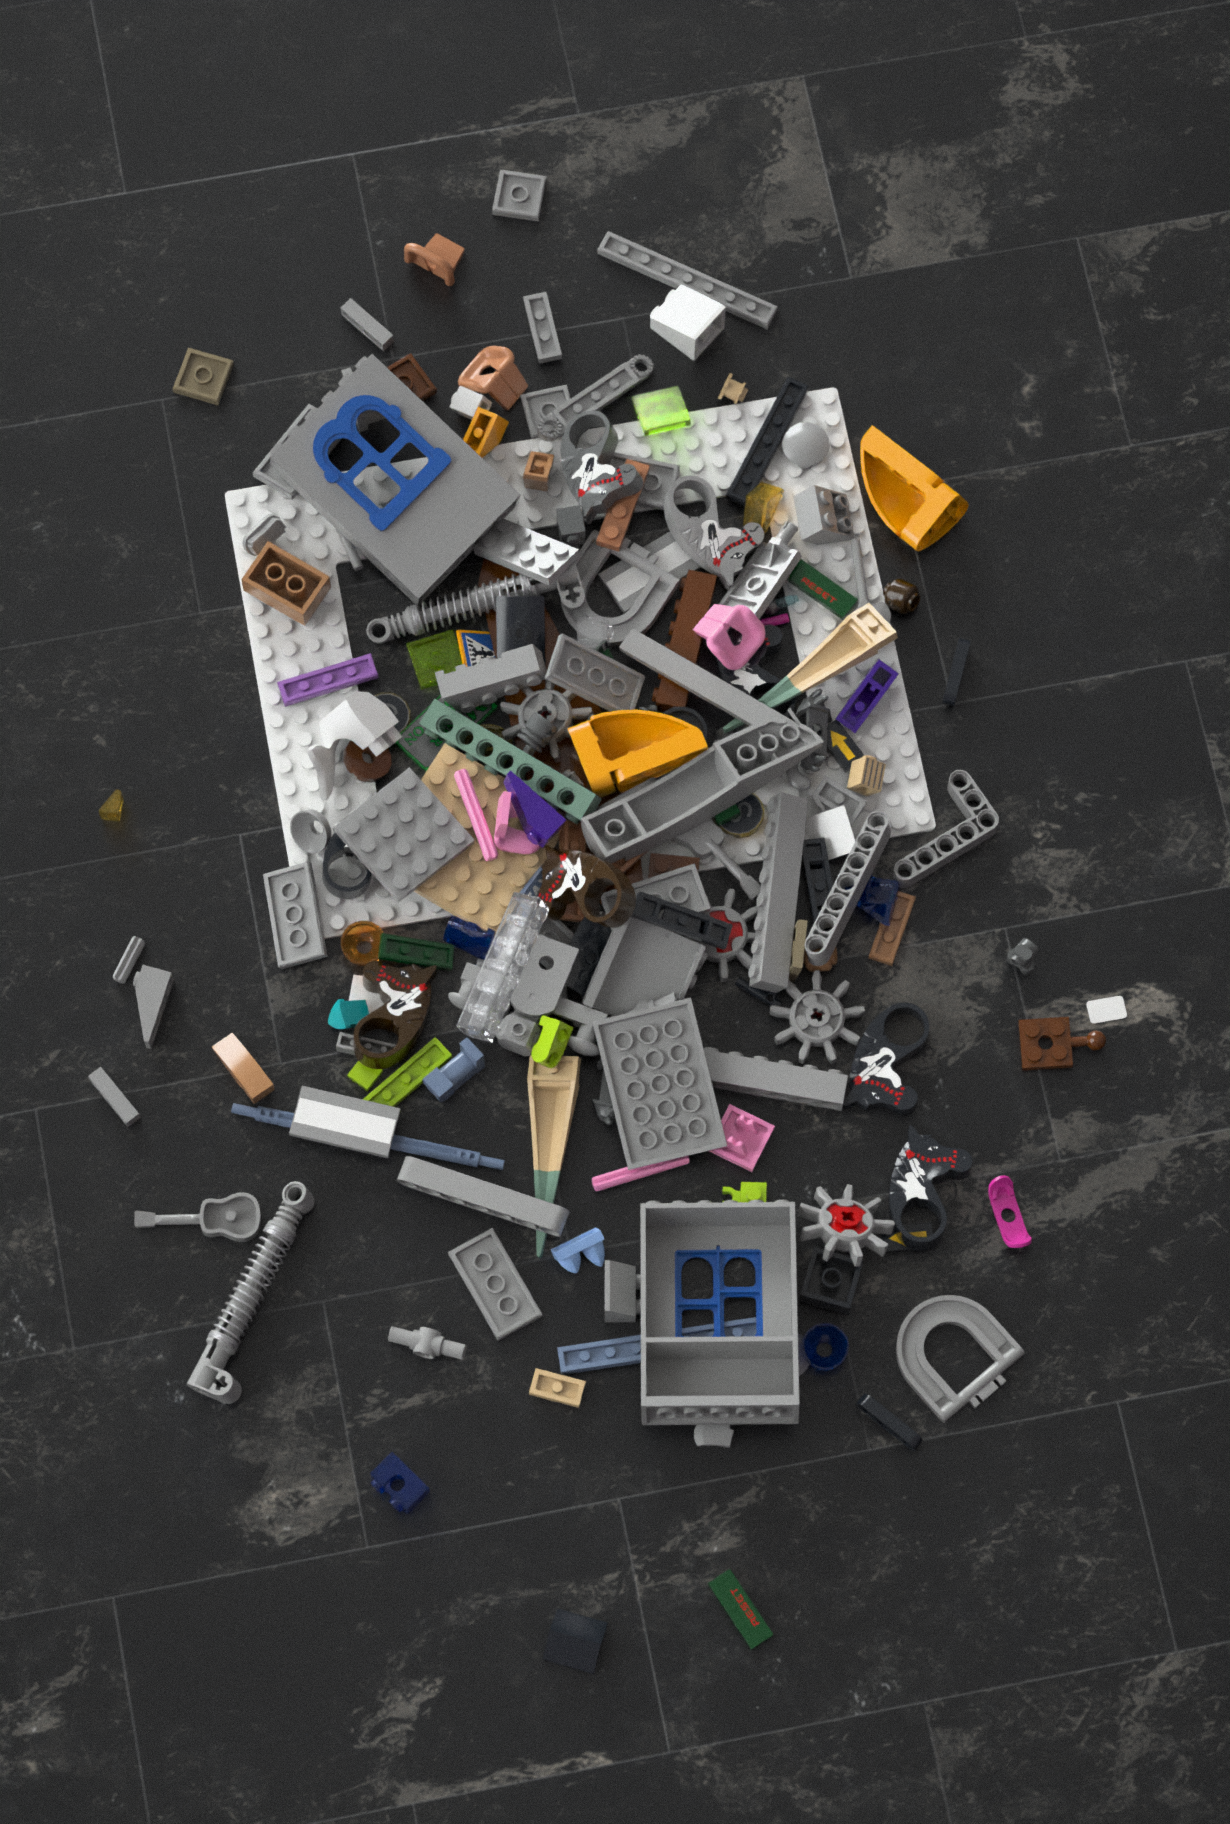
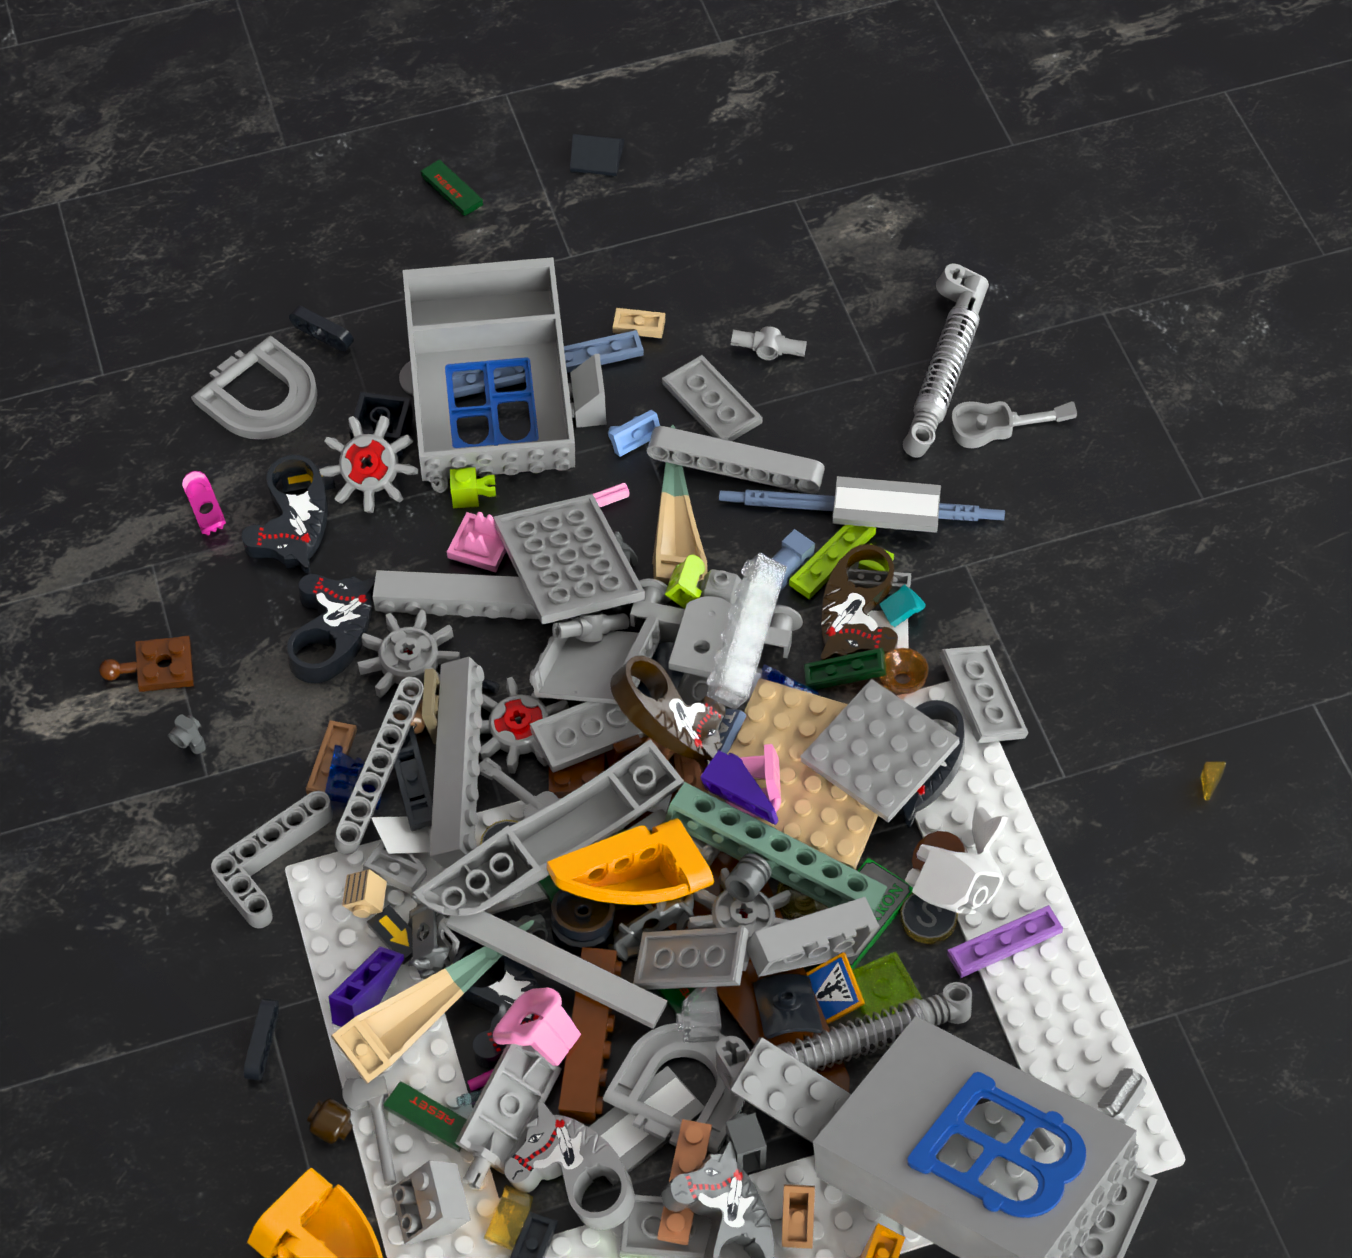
camera: 175 degrees right, 15 degrees down
(114, 1096) = (1126, 511): light grey piece -> none
(128, 959) = (1149, 636): light grey axle -> none
(152, 992) = (1115, 598): light grey slope -> none
(243, 1068) = (1002, 546): medium nougat slope -> none
(286, 583) = (1080, 1033): medium nougat brick -> none
(306, 835) = (983, 767): light grey piece -> none
(394, 1469) = (768, 230): clear blue brick -> none
(476, 815) = (804, 786): bright pink axle -> none
(682, 920) = (559, 698): black hinge -> none
(827, 1334) = (384, 368): clear blue piece -> none
(1106, 1009) = (97, 707): white sticker -> none

